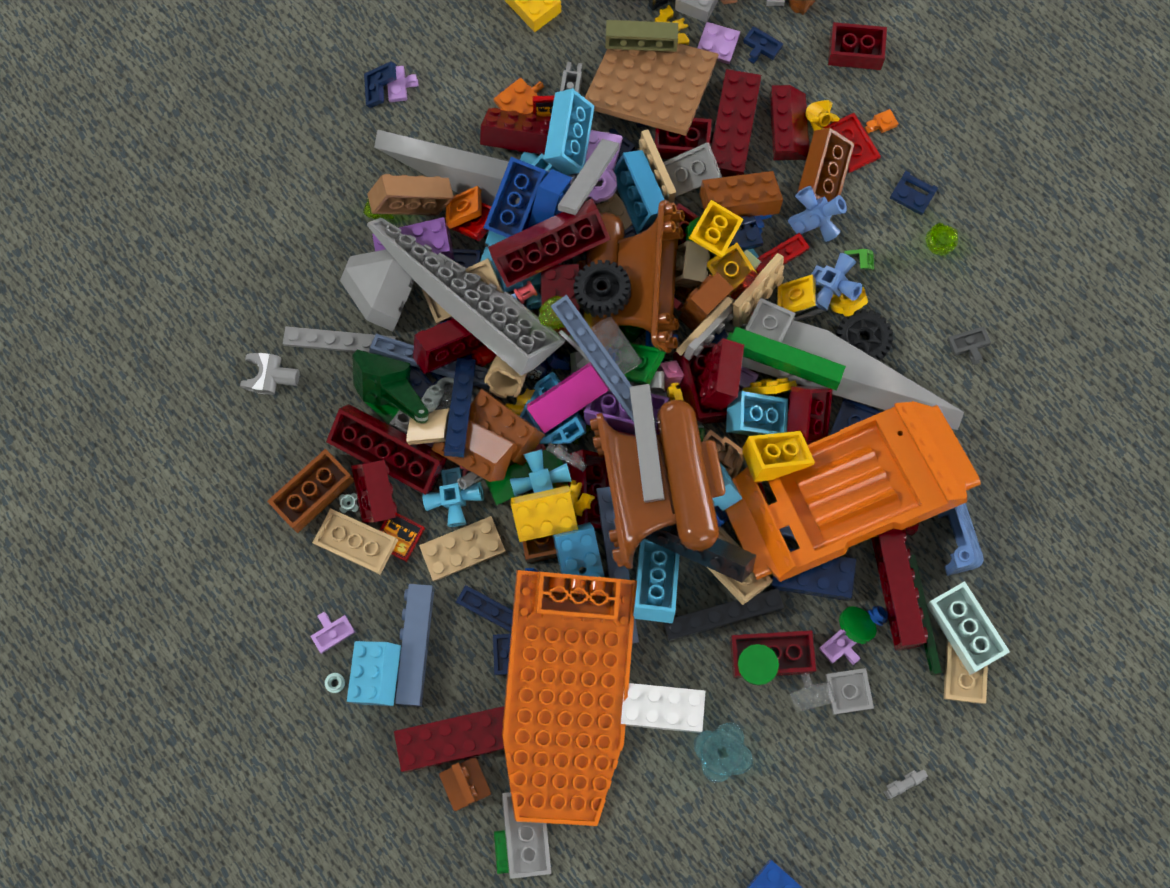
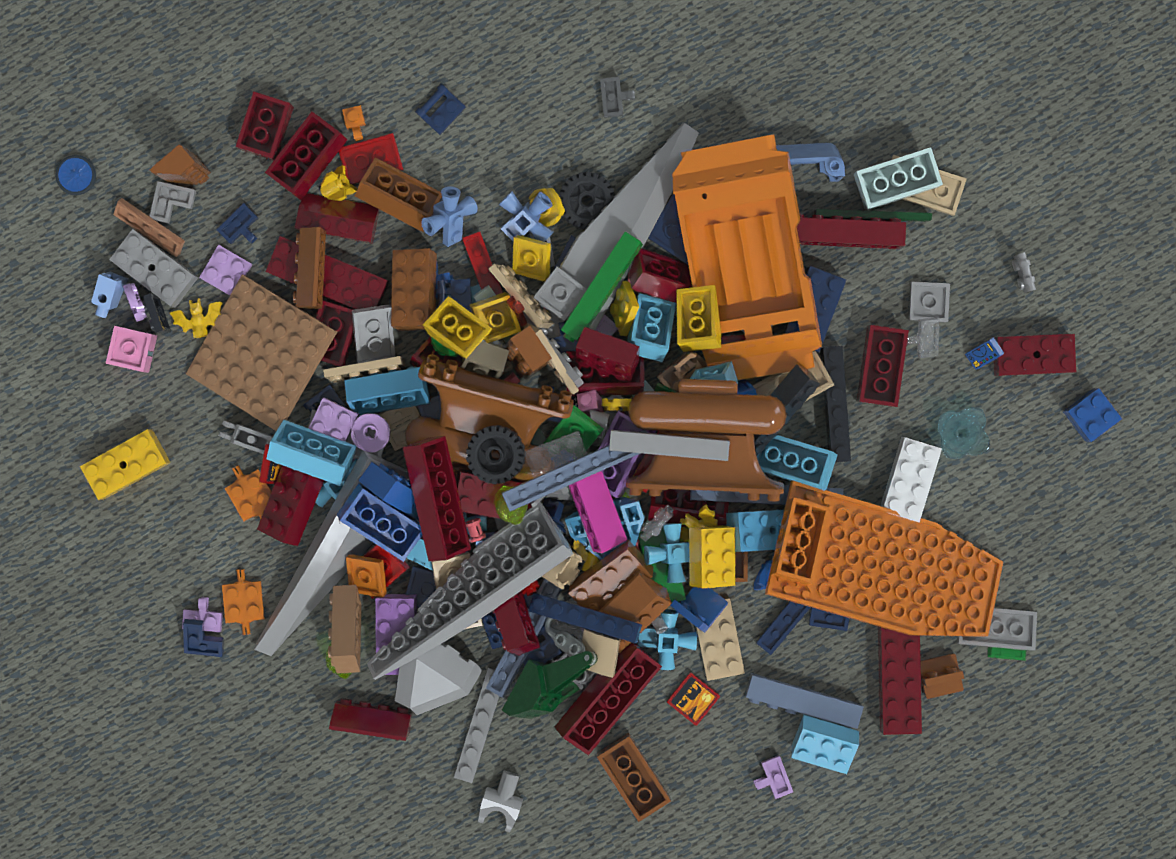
camera: 85 degrees left, 15 degrees up
(328, 240) = (371, 720): none -> dark red slope
(328, 682) = (827, 786): light aqua plate -> none
(348, 498) = (650, 747): light aqua plate -> none
(355, 541) = (692, 742): tan plate -> none
(374, 491) = (649, 716): dark red slope -> none
(419, 113) = (243, 601): none -> orange plate
(490, 520) = (701, 607): none -> blue bracket
(588, 177) = (373, 444): light grey tile -> none
(641, 35) = (208, 352): olive brick -> none
(739, 101) = (310, 268): none -> dark orange slope
(758, 664) = (893, 383): green tile -> none
(811, 758) = (984, 353): none -> blue tile
(825, 835) = (1054, 352): none -> dark red brick
(838, 646) = (884, 298): lavender plate -> none
(840, 84) = (306, 155): none -> dark red brick
(857, 625) = (870, 279): green tile -> none
(866, 258) = (503, 179): bright green panel -> none
(878, 615) = (864, 256): blue plate -> none
(944, 236) = (499, 90): clear neon green hair -> none

